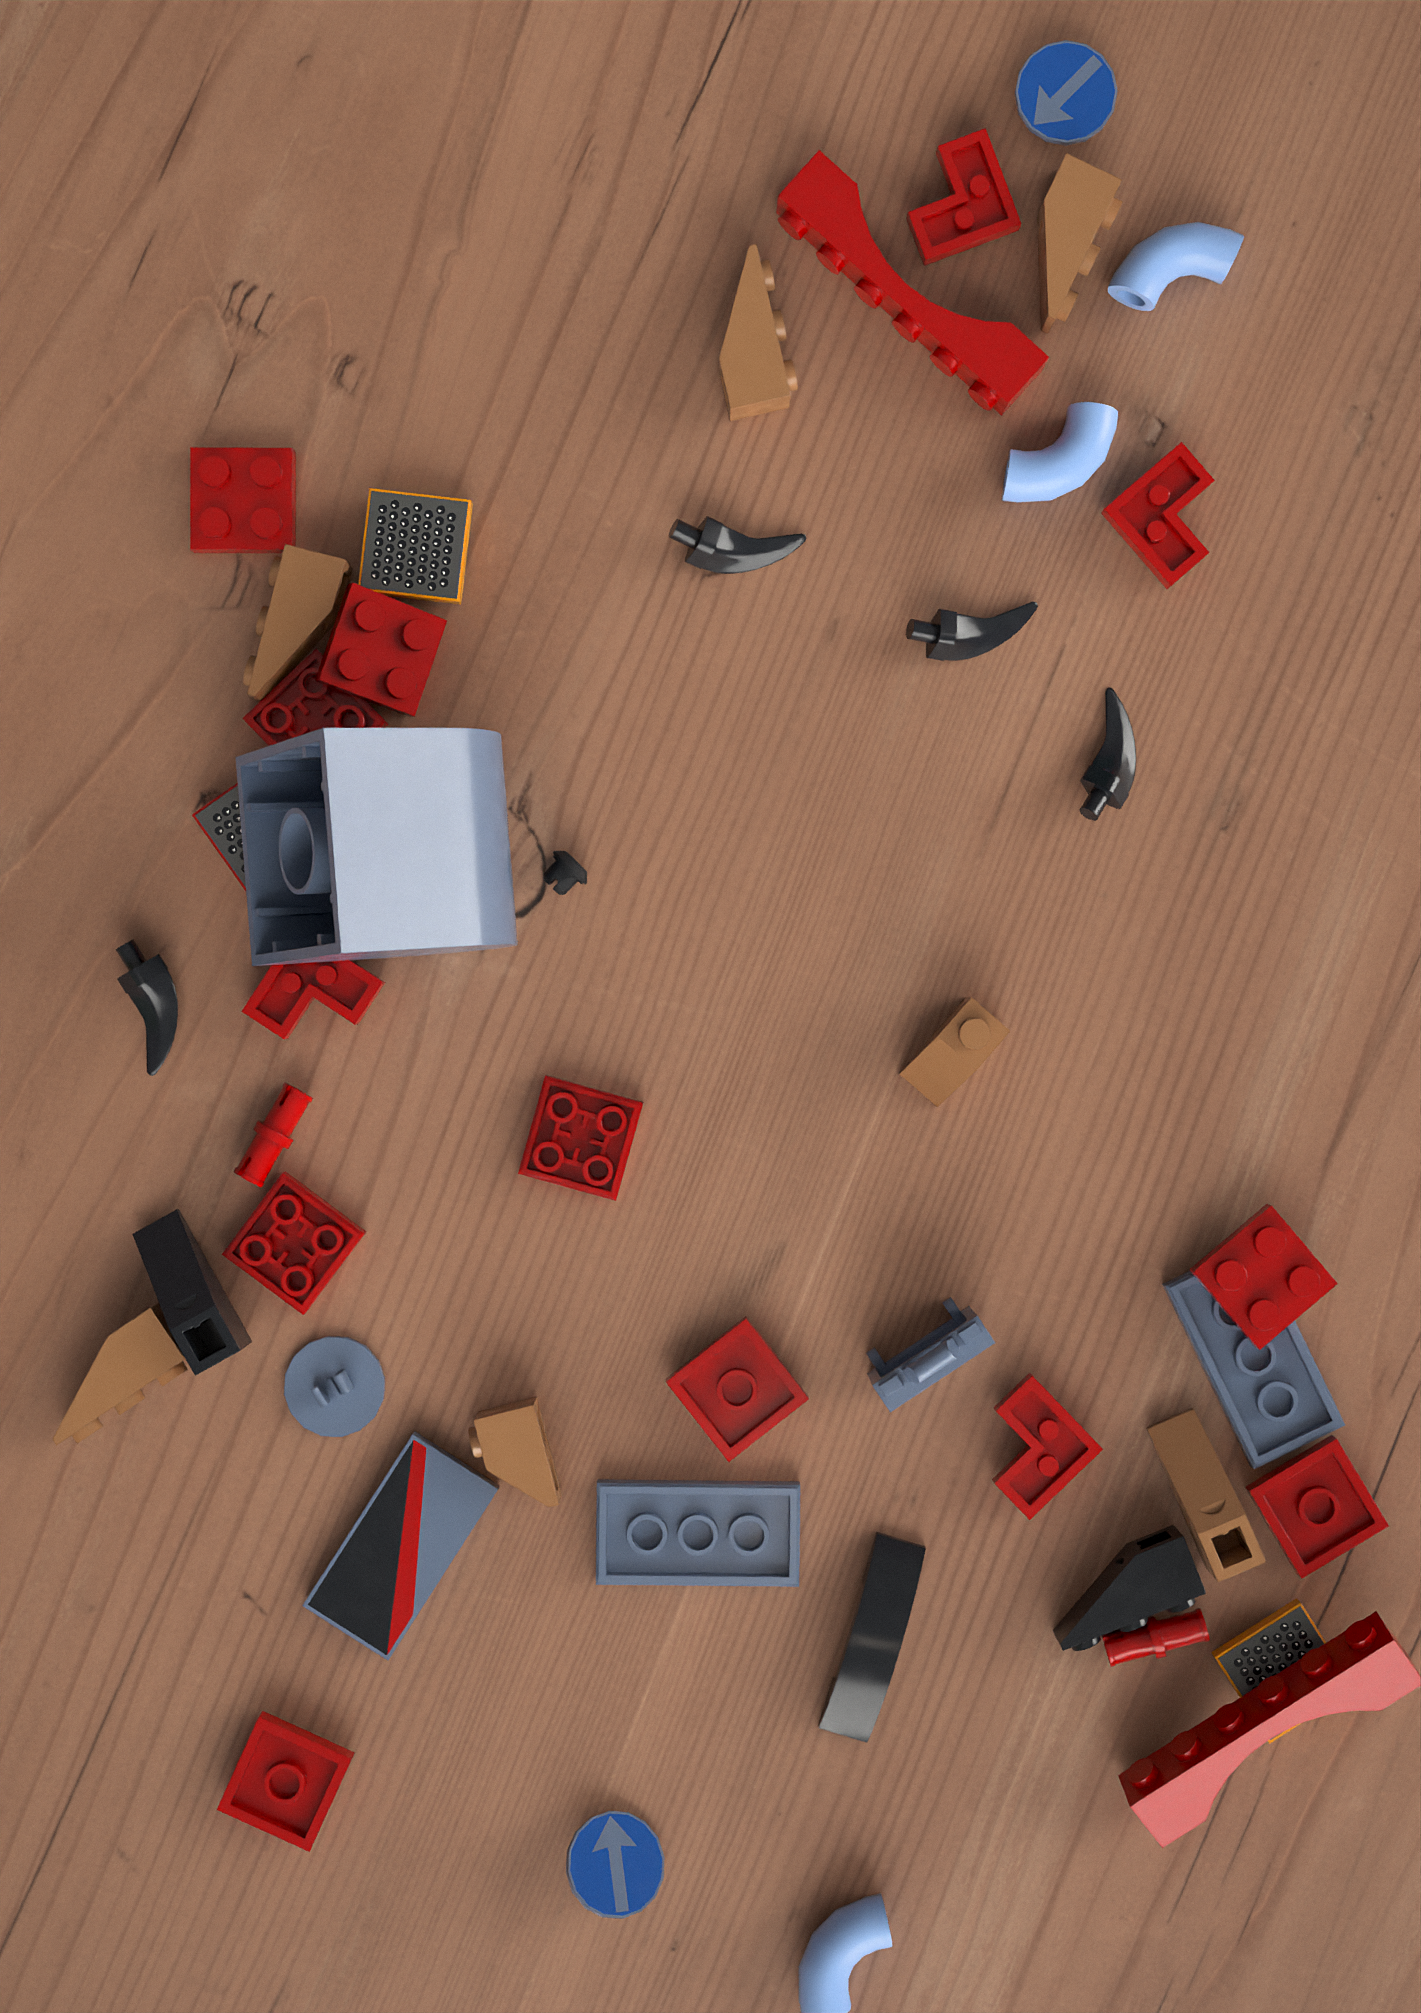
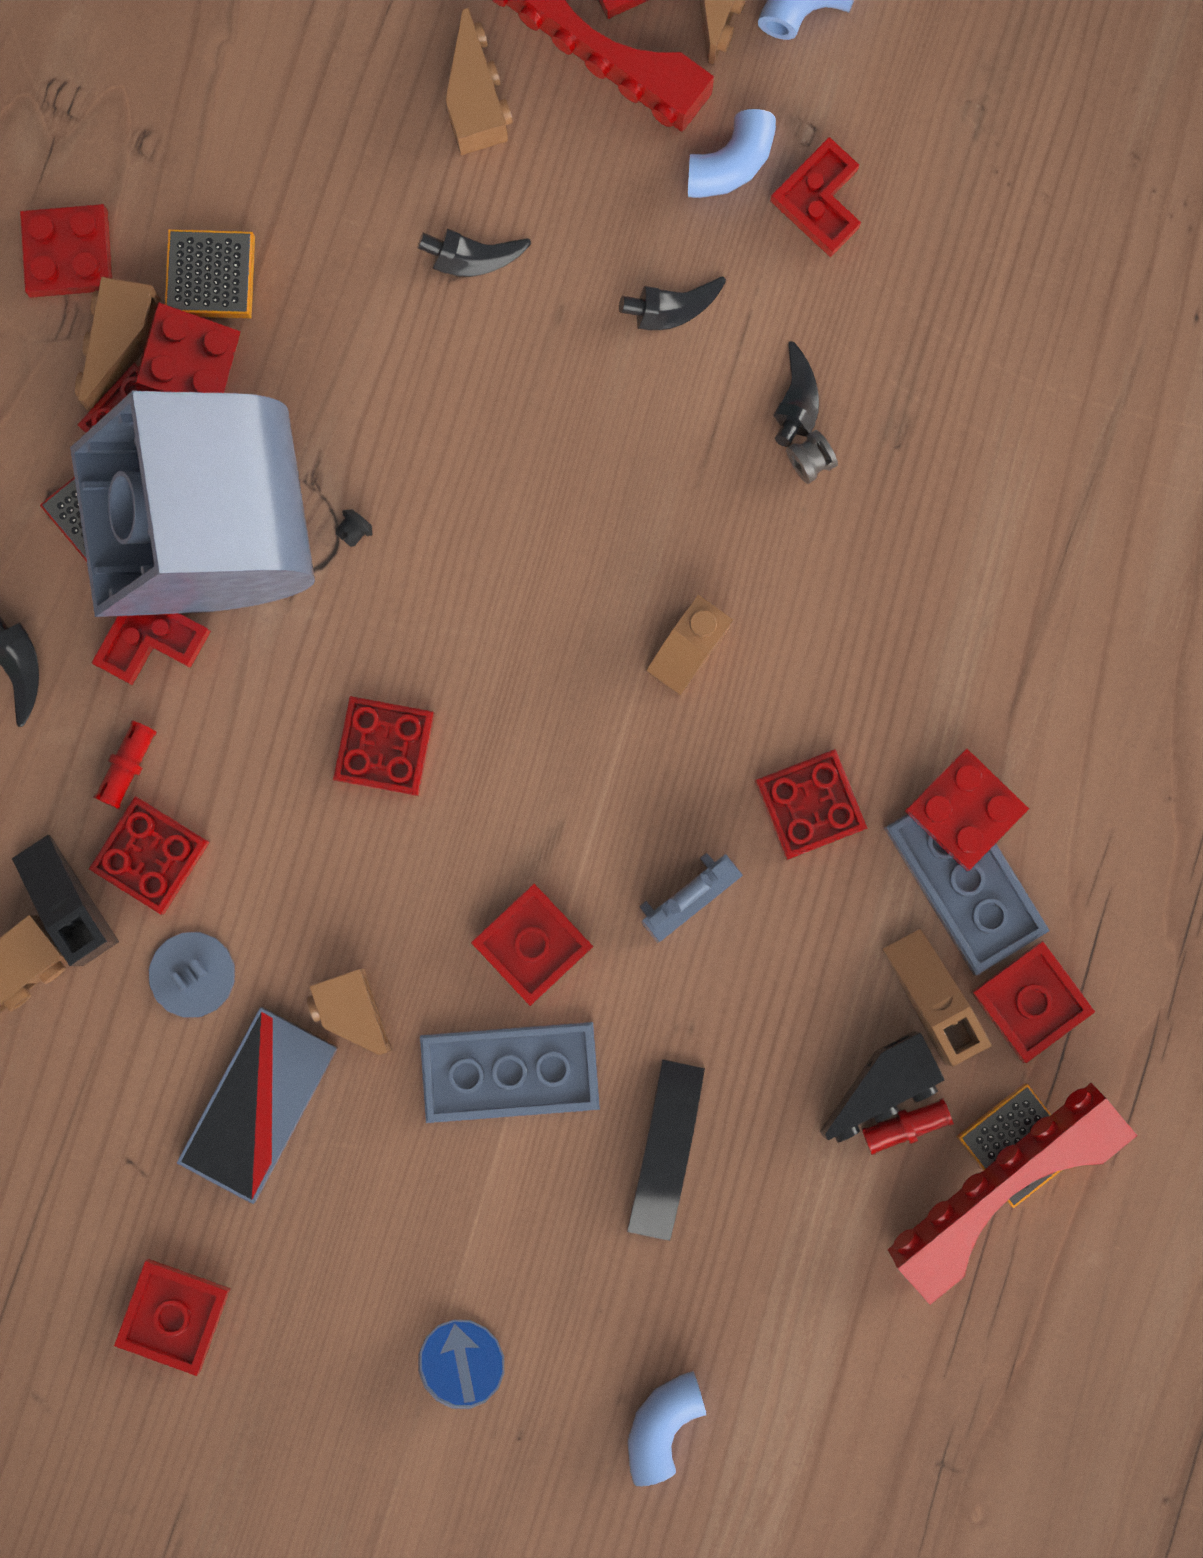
camera: 10 degrees left, 5 degrees down
(1055, 1447) = (805, 967): red plate -> none
(1079, 1251) = (811, 804): none -> red tile
(1121, 835) = (812, 456): none -> flat silver wheel

